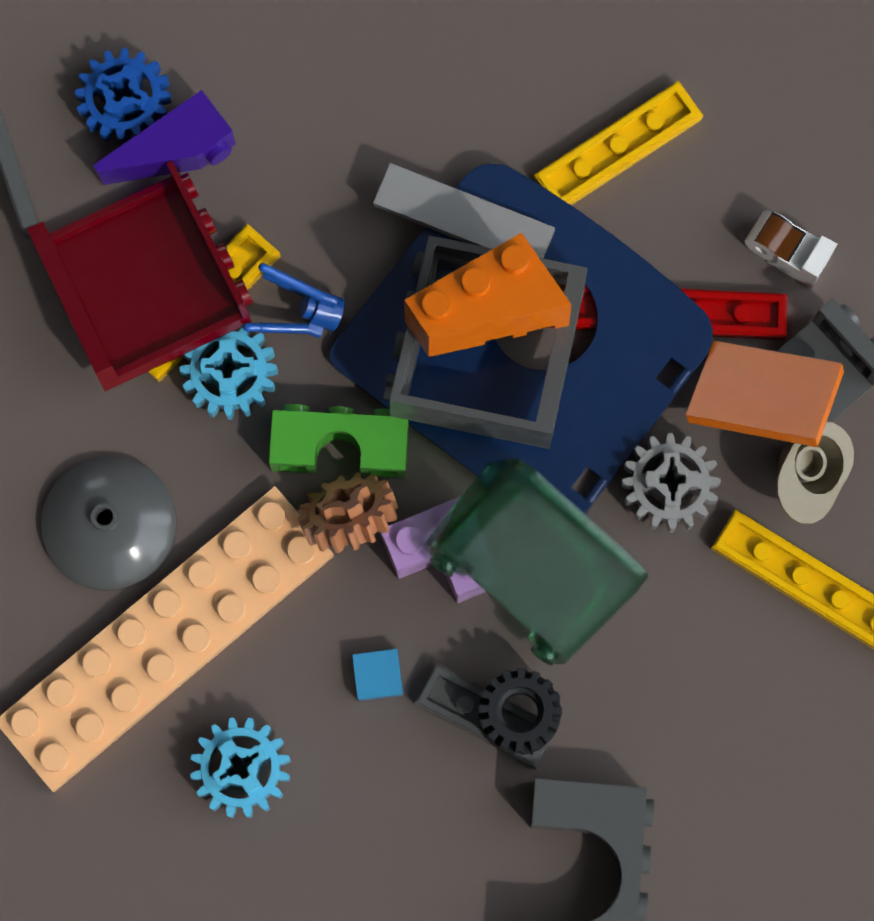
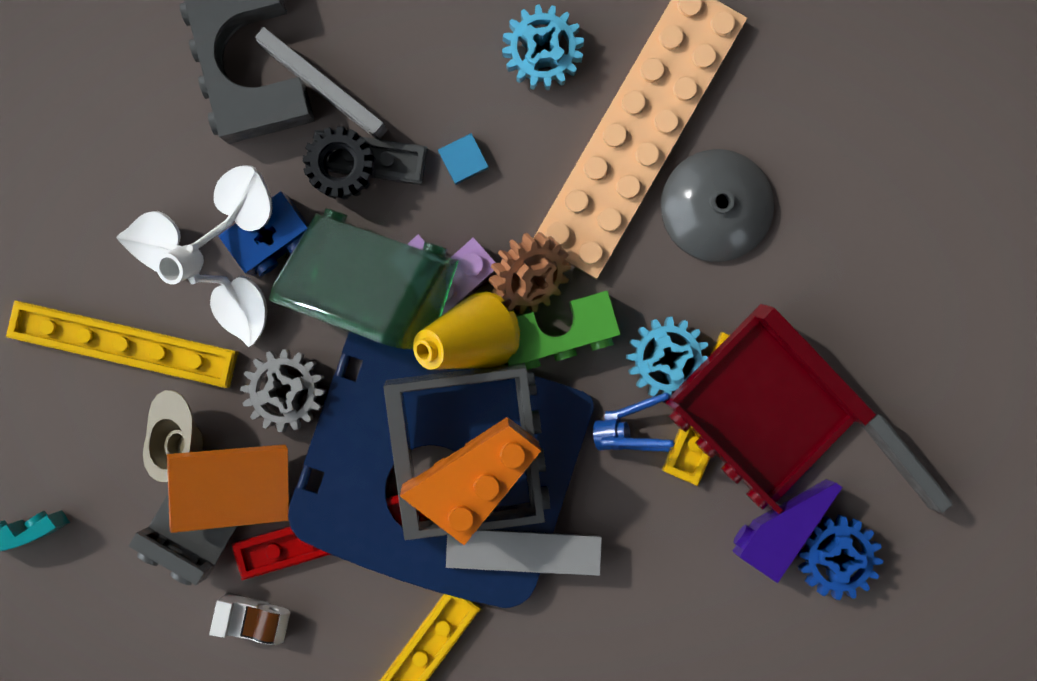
camera: 160 degrees right, 10 degrees up
(438, 461) = (469, 335): none -> yellow cone
(510, 814) = (320, 84): none -> light grey tile
(657, 667) = (249, 246): none -> blue brick
(692, 594) = (156, 239): none -> white plant

